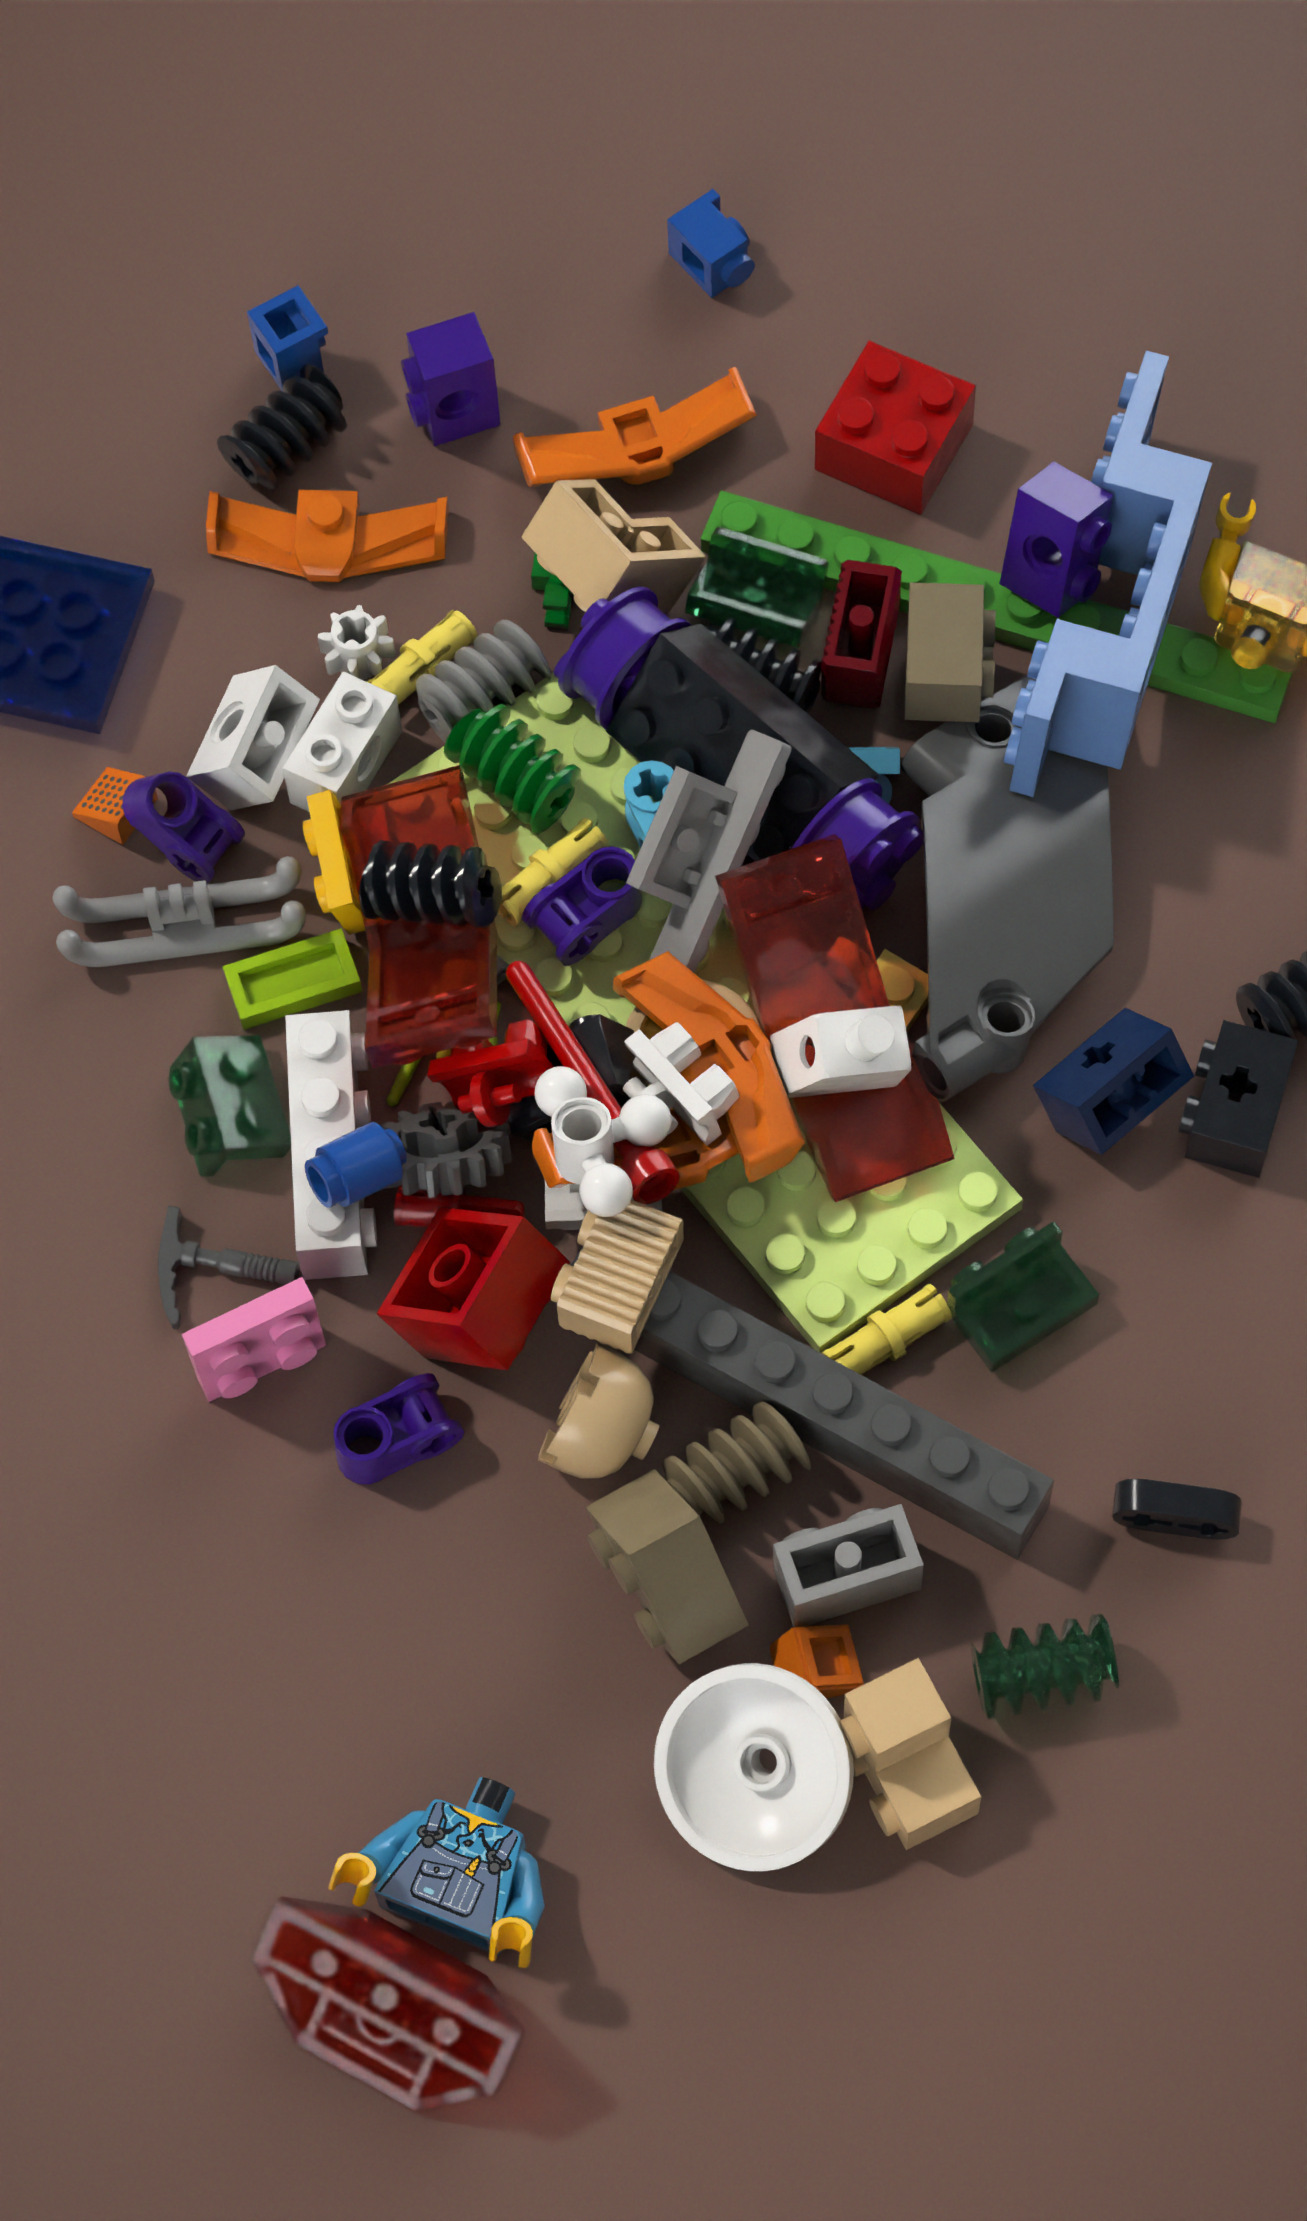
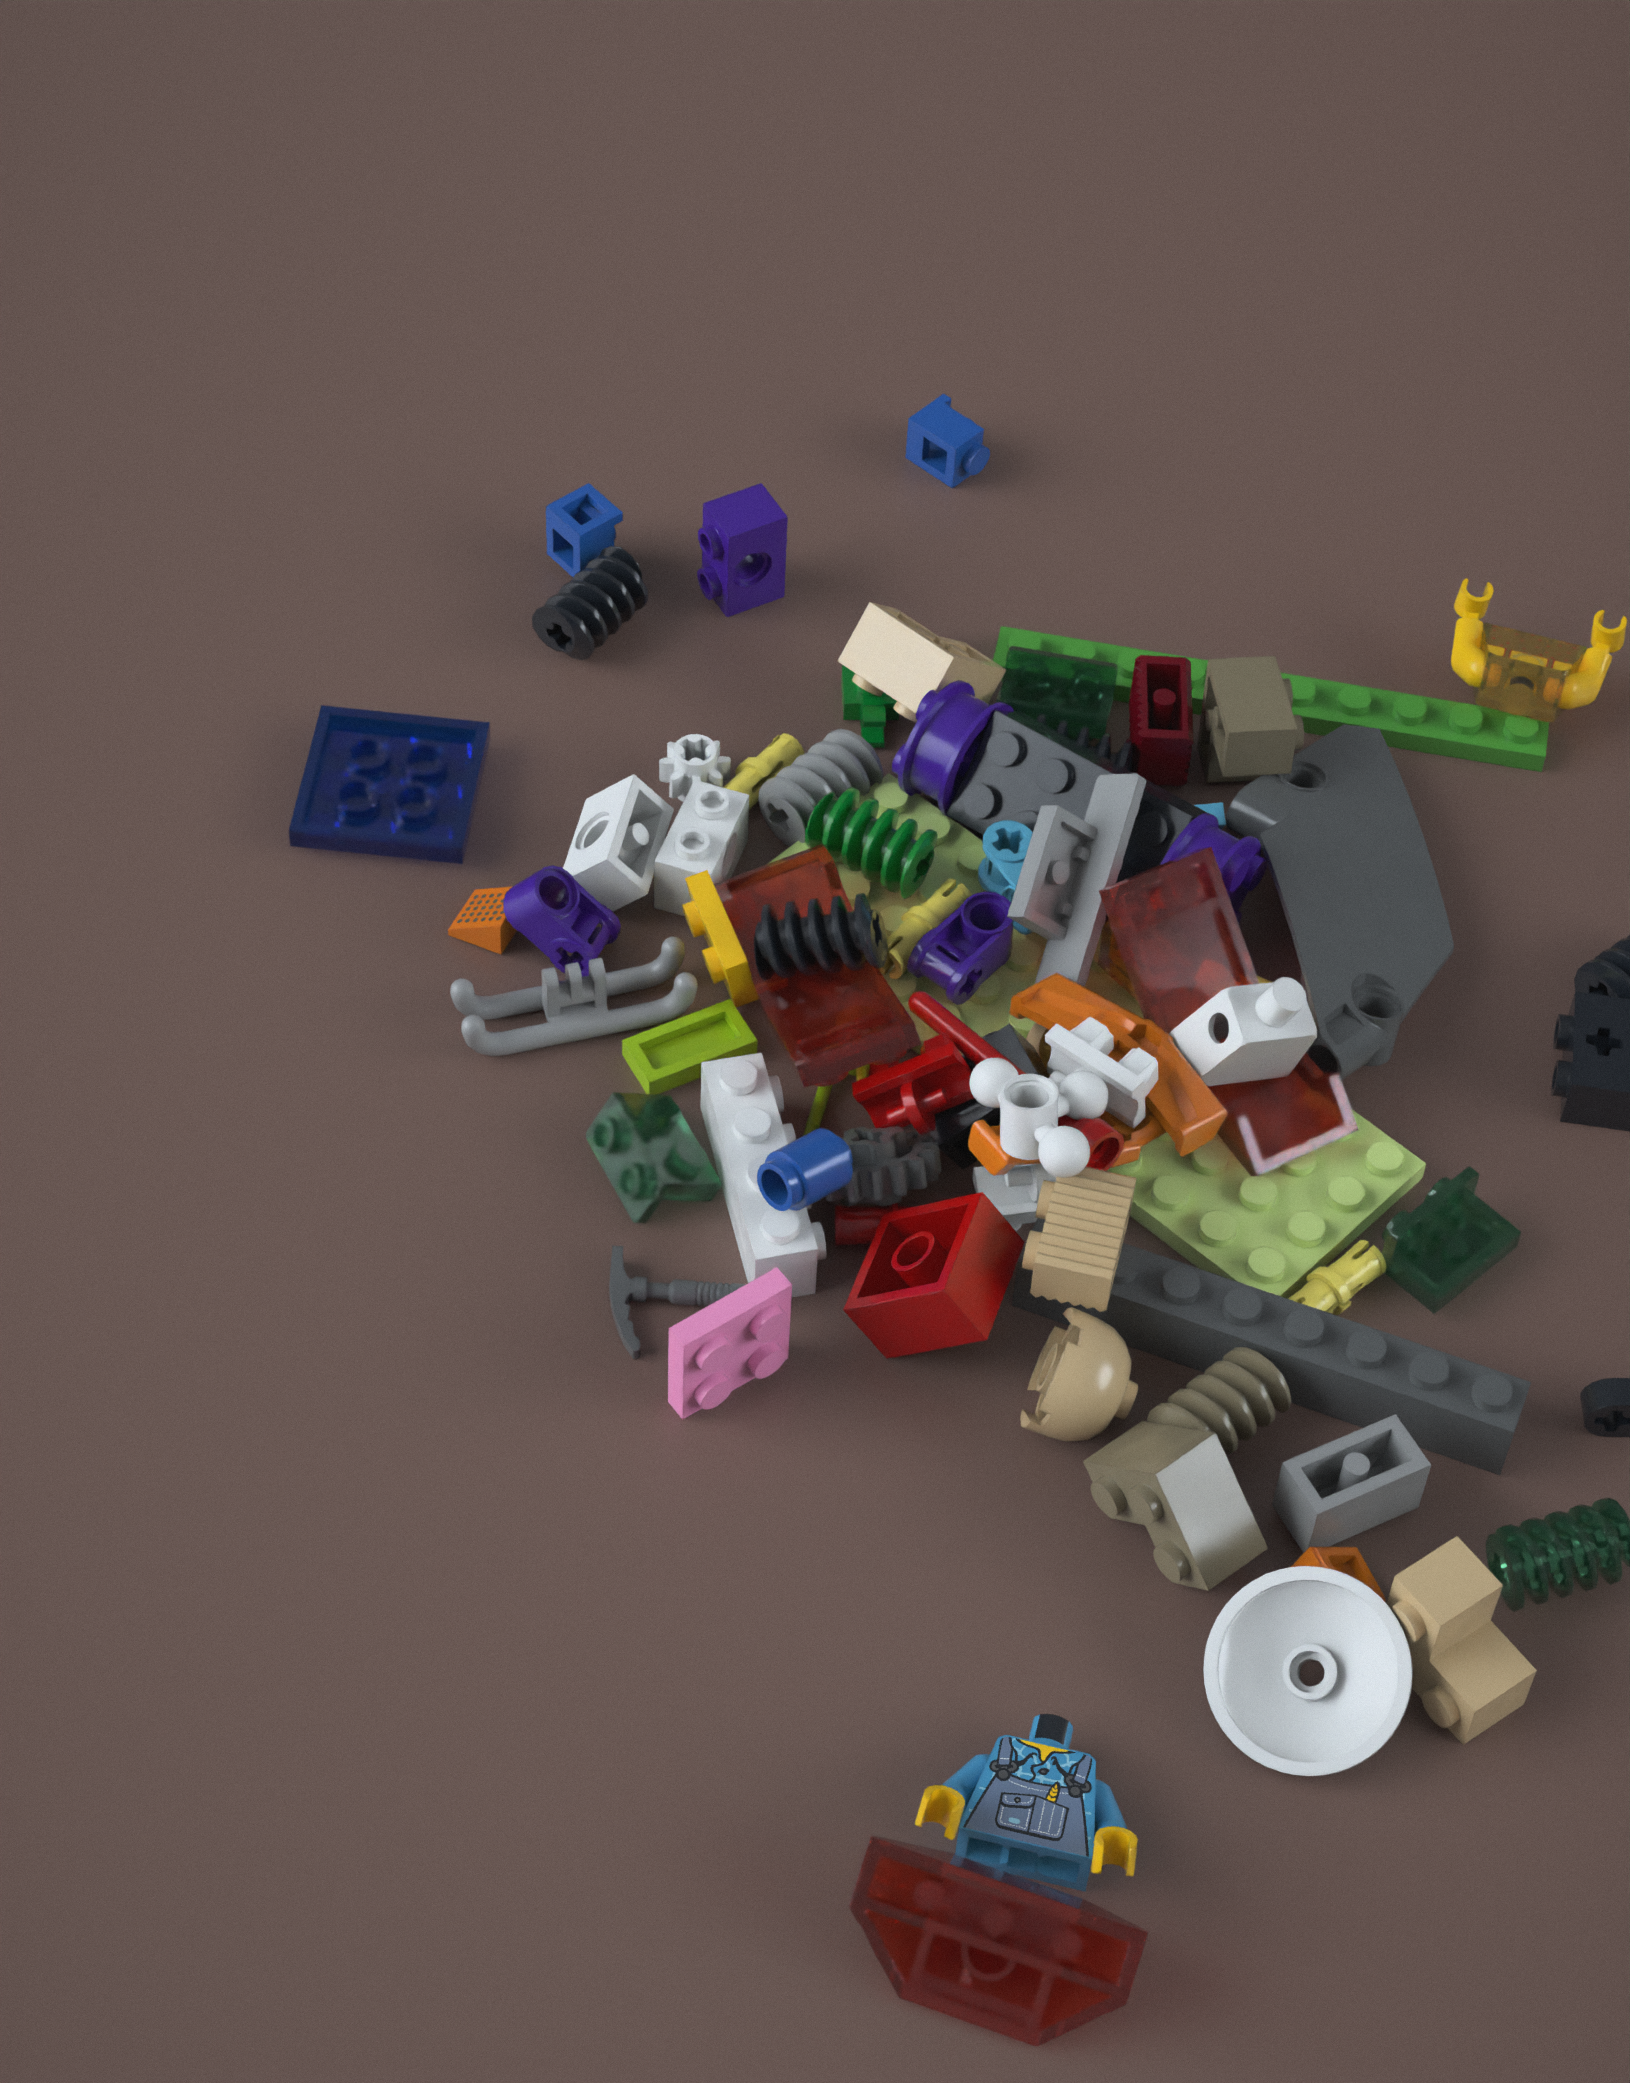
camera: 15 degrees left, 15 degrees down
(326, 535) = (645, 689): orange plate -> none
(399, 1426) = (884, 1414): dark purple piece -> none
(637, 438) = (916, 587): orange plate -> none
(894, 427) = (1147, 564): red brick -> none
(1056, 539) = (1306, 647): dark purple brick -> none
(1088, 678) = (1399, 611): medium blue bracket -> none
(1113, 1080) = (1486, 1053): dark blue brick -> none

